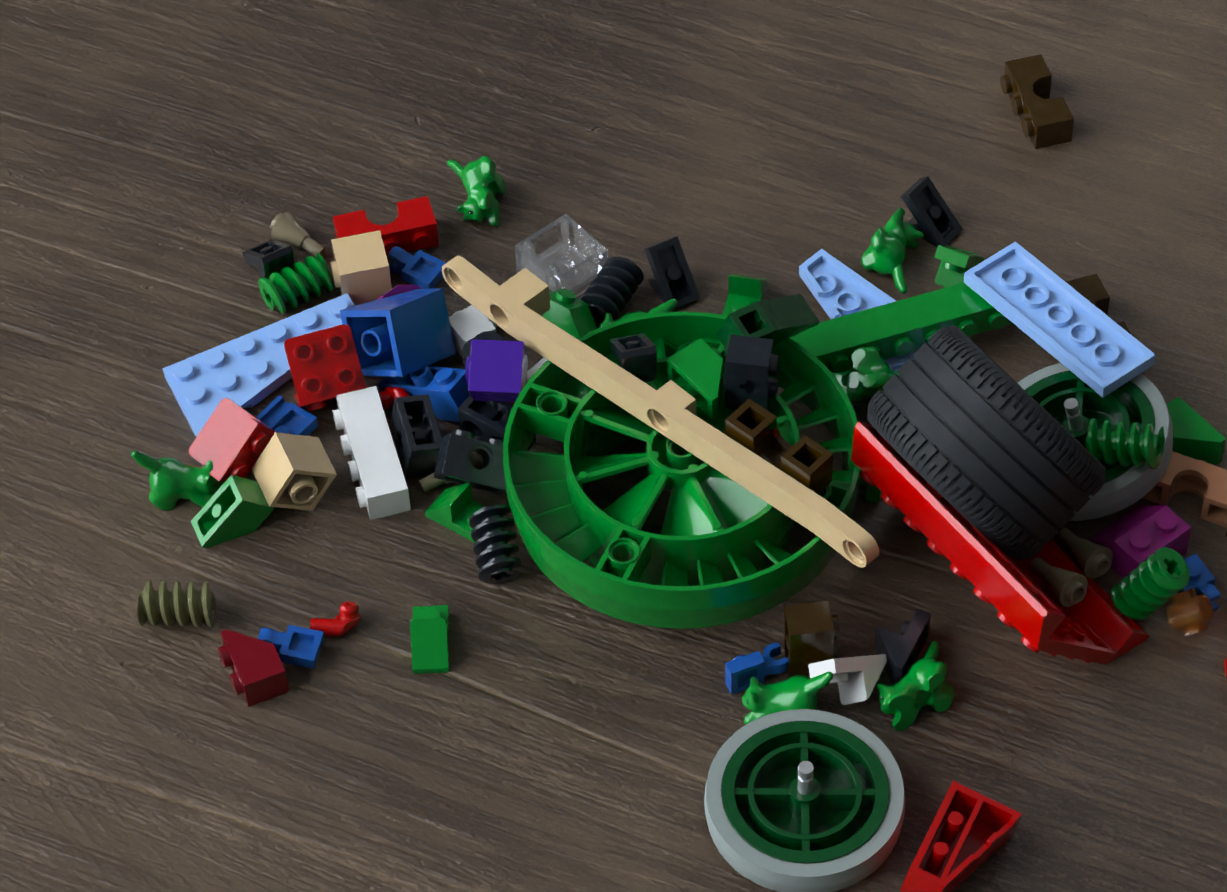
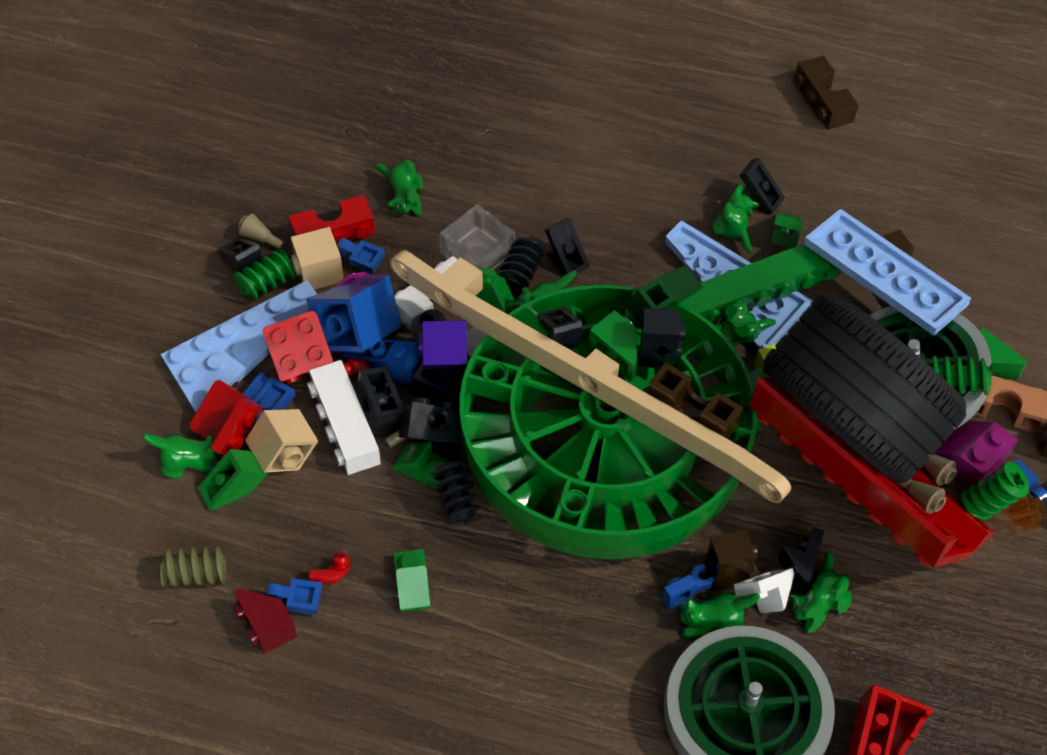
camera: 10 degrees left, 5 degrees up
(743, 291) = (625, 265): green slope -> none

